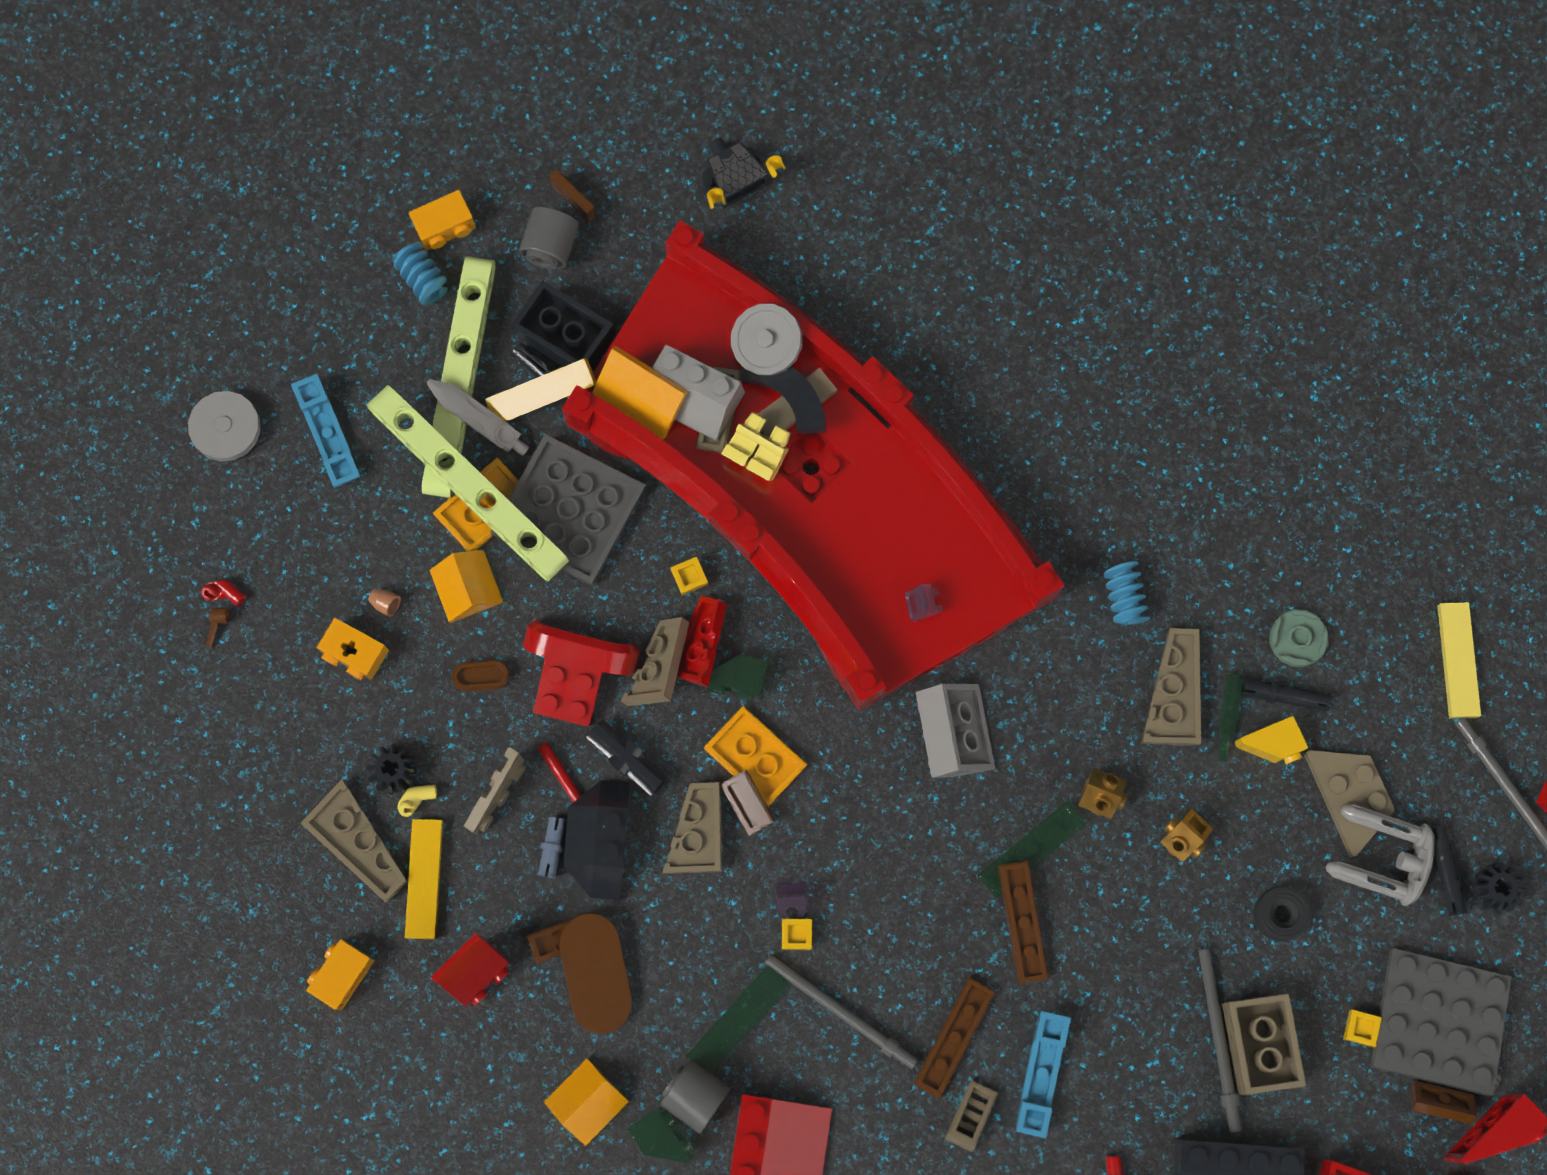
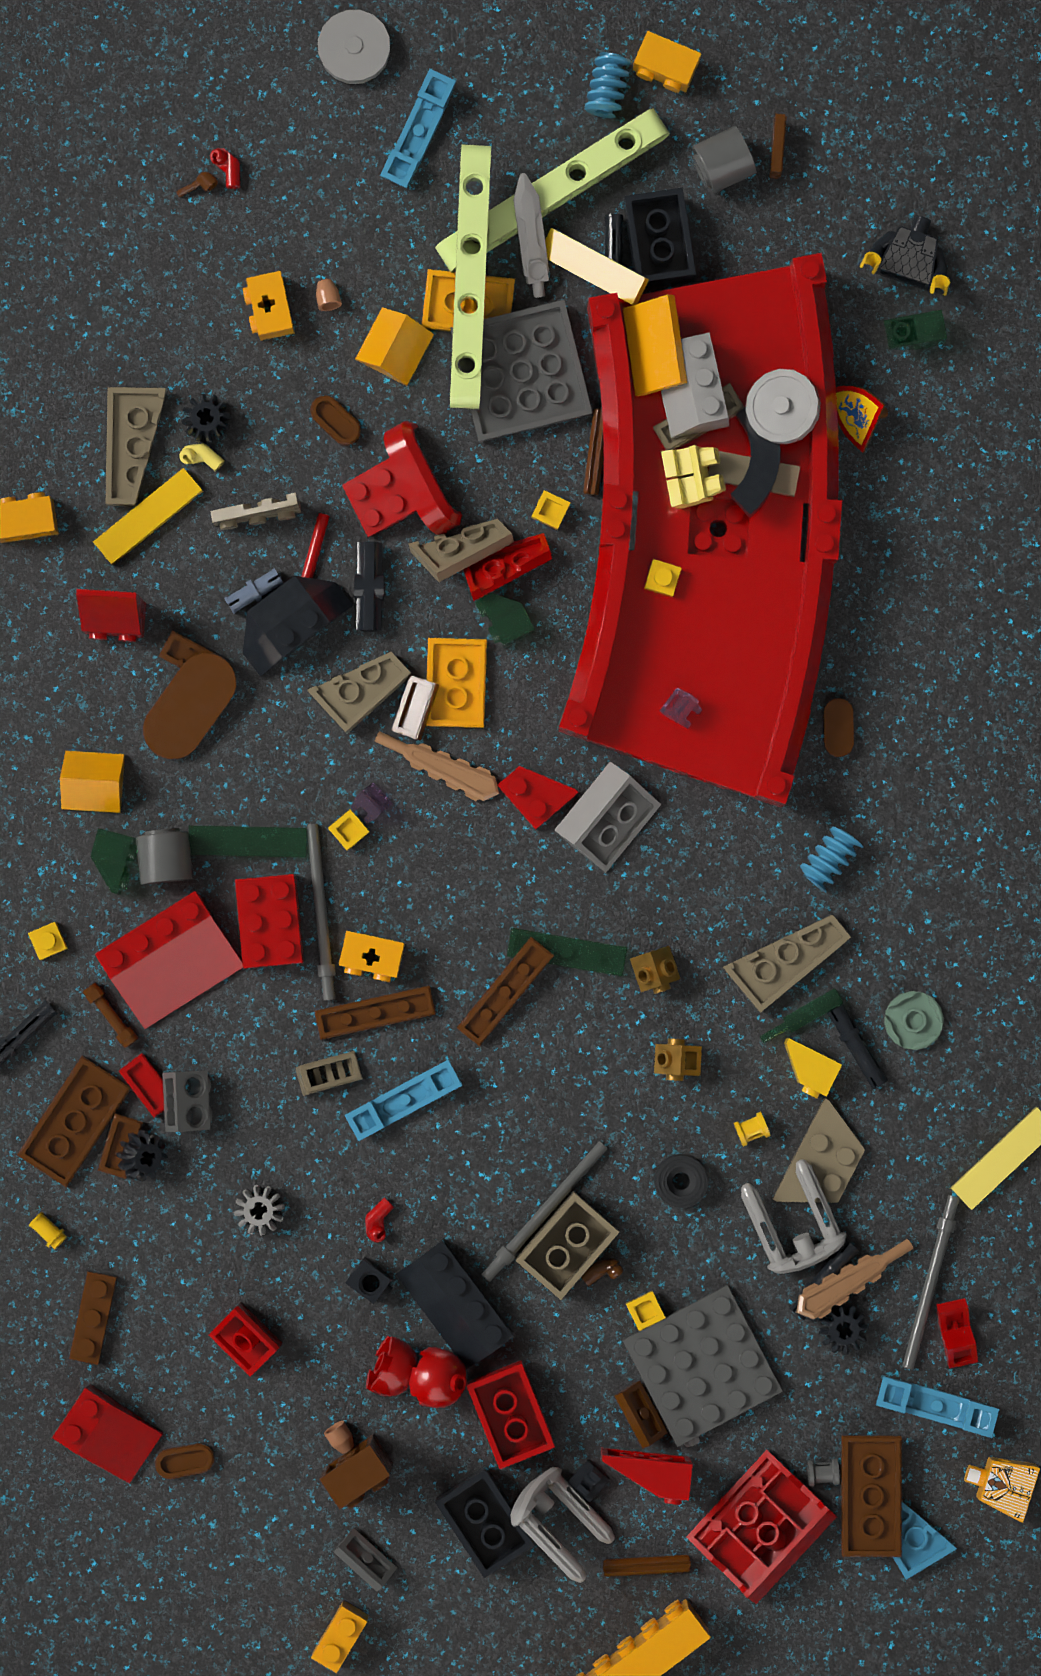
camera: 50 degrees right, 10 degrees up
(676, 508) = (595, 455): none -> reddish brown axle
(792, 210) = (916, 331): none -> clear green slope
(813, 534) = (662, 578): none -> yellow plate
(815, 1057) = (269, 921): none -> red brick
(817, 298) = (858, 414): none -> shield
(825, 815) = (458, 774): none -> medium nougat sword
(891, 770) = (535, 795): none -> red wing
(891, 1003) = (357, 944): none -> light orange brick
(1032, 508) = (838, 727): none -> reddish brown tile
(1285, 826) = (752, 1129): none -> yellow bush
(1303, 1028) = (600, 1268): none -> reddish brown arm
(1462, 885) = (835, 1289): none -> medium nougat sword

